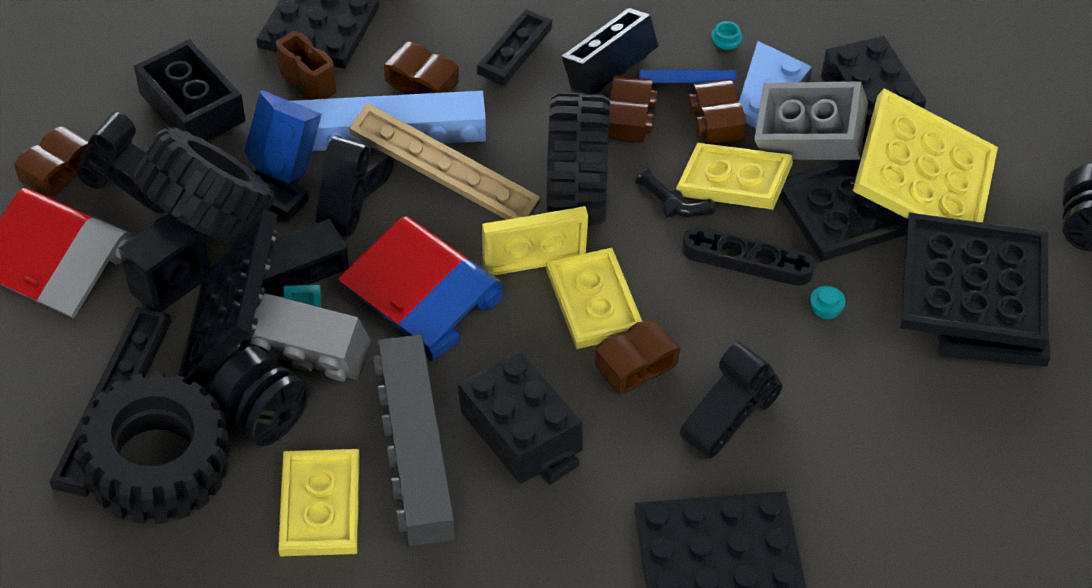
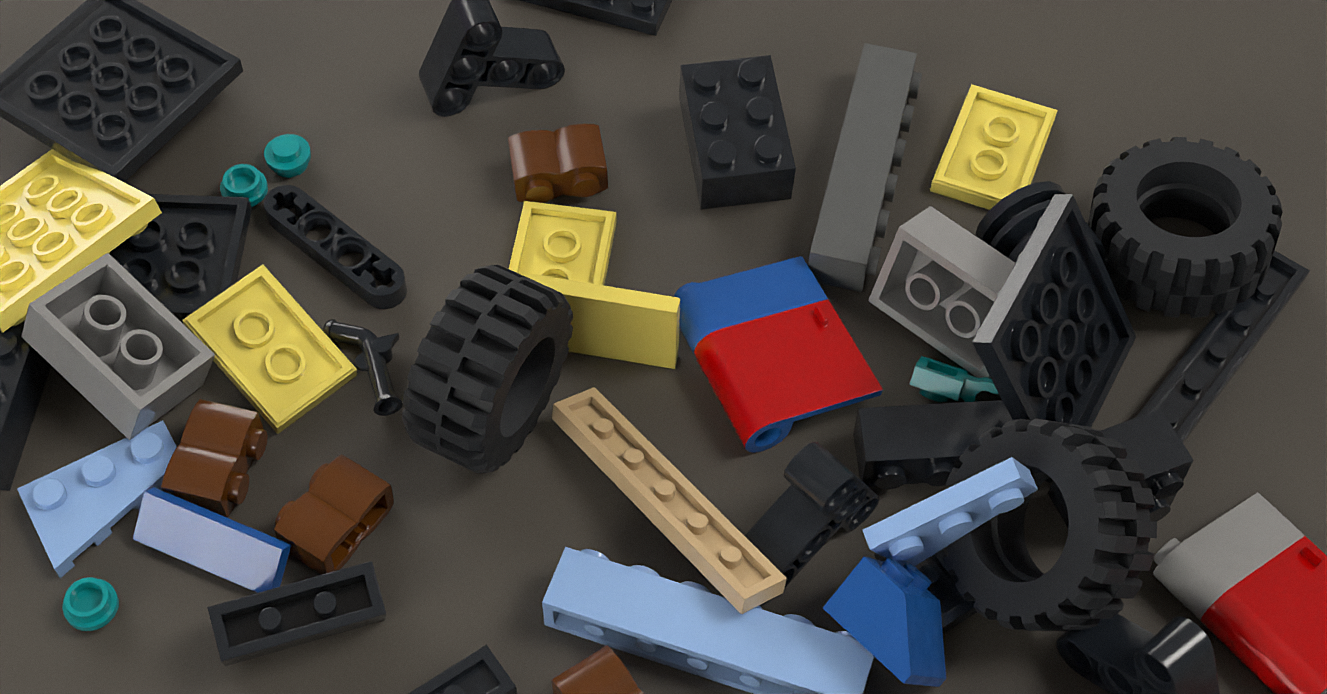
camera: 155 degrees left, 5 degrees up
(263, 153) = (950, 514): none -> light blue wing
(837, 269) = (244, 181): none -> teal plate

